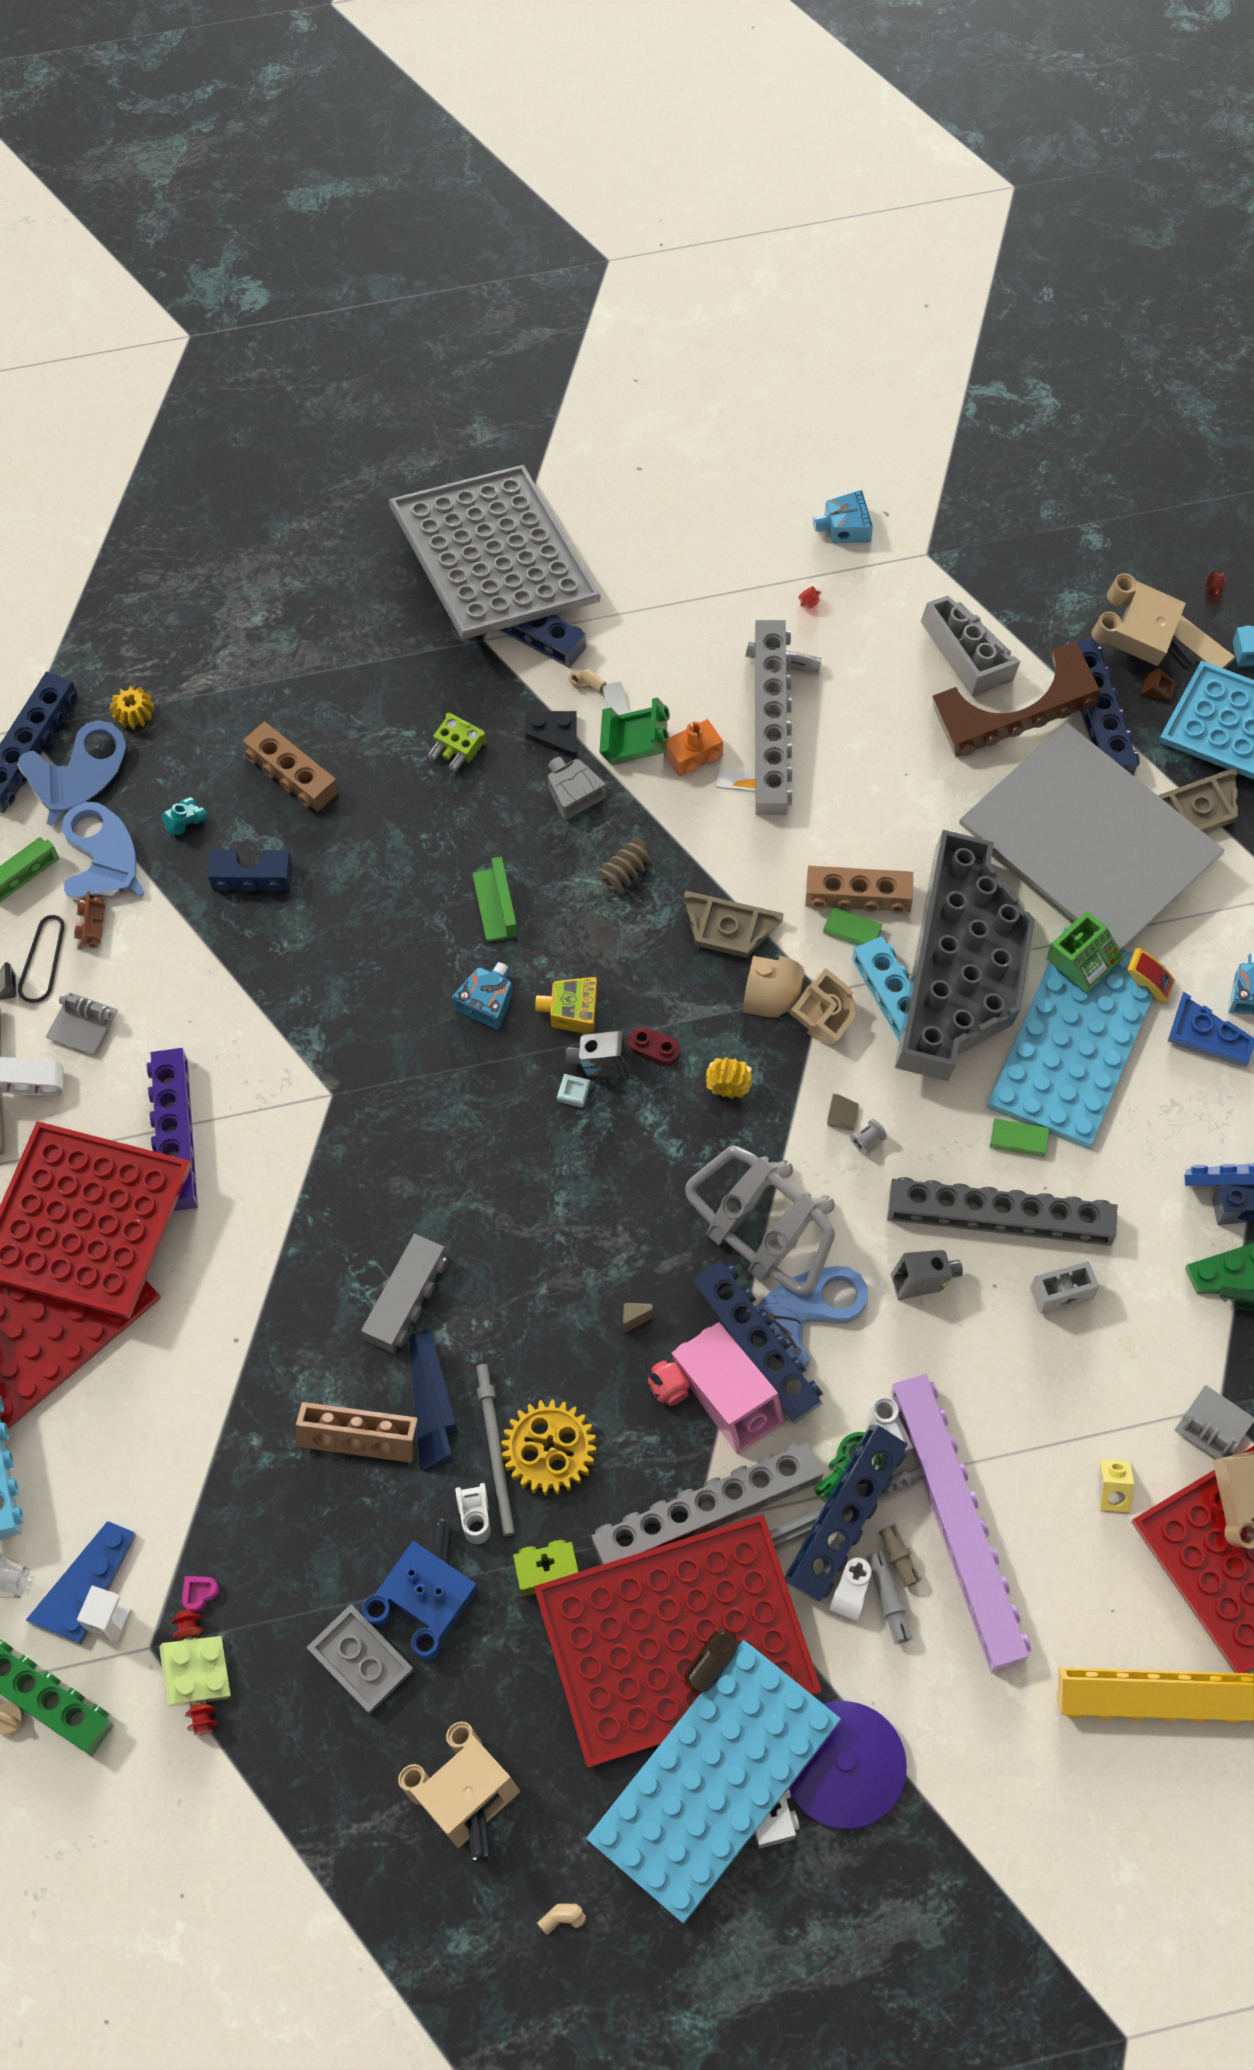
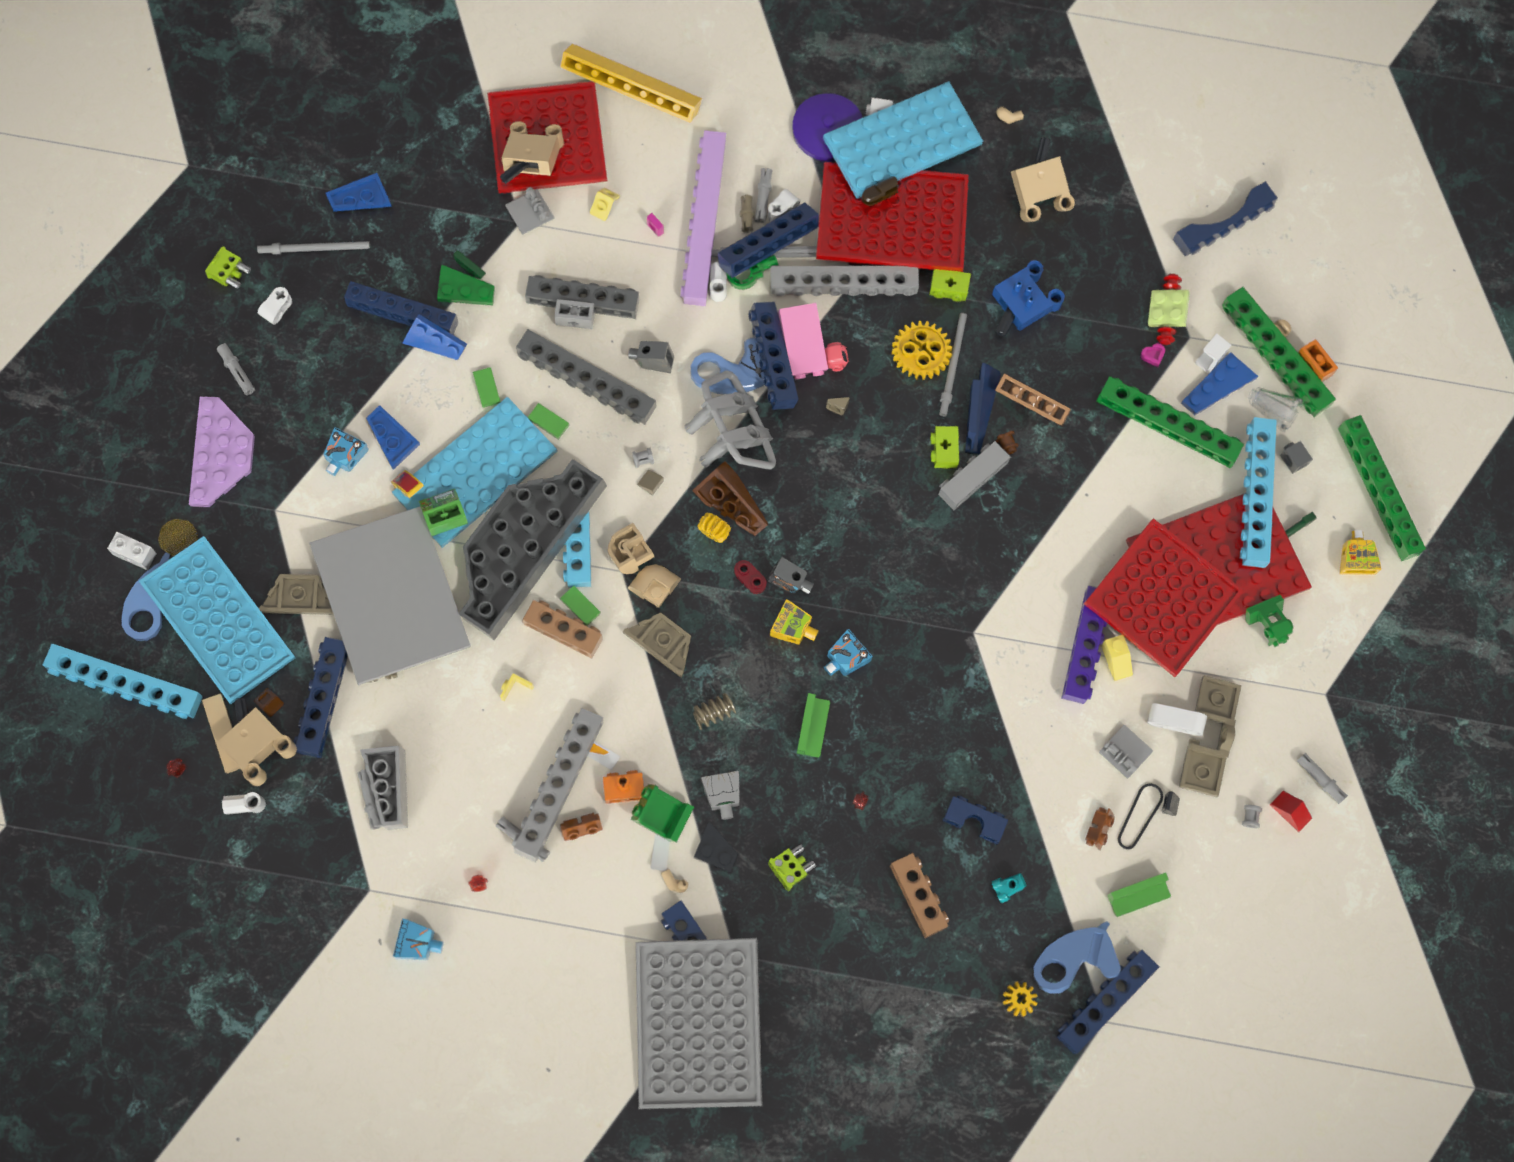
camera: 165 degrees left, 10 degrees up
(43, 1470) = (1176, 431): none -> green brick
(100, 1929) = (1195, 236): none -> dark blue arch
(112, 854) = (1069, 868): medium blue animal -> none
(127, 1128) = (1117, 657): none -> light yellow slope
(360, 1659) = (1073, 279): light grey plate -> none
(373, 1359) = (1007, 442): none -> reddish brown brick
(401, 841) = (860, 801): none -> clear red plate
(465, 1332) = (949, 437): none -> lime brick
(474, 1508) = (979, 333): white piece -> none
(573, 1090) = (815, 568): light aqua tile -> none
(723, 1130) = (729, 496): none -> reddish brown wedge
(731, 687) = (590, 825): none -> dark orange hinge
(885, 810) = (508, 684): none -> light yellow bracket
(974, 728) = (340, 706): reddish brown arch -> none
(1024, 1476) = (655, 225): none -> dark pink tile
(1108, 572) = (242, 803): none -> white piece
(1126, 1148) = (486, 387): none -> bright green tile
(1135, 1298) = (608, 306): none -> dark grey brick

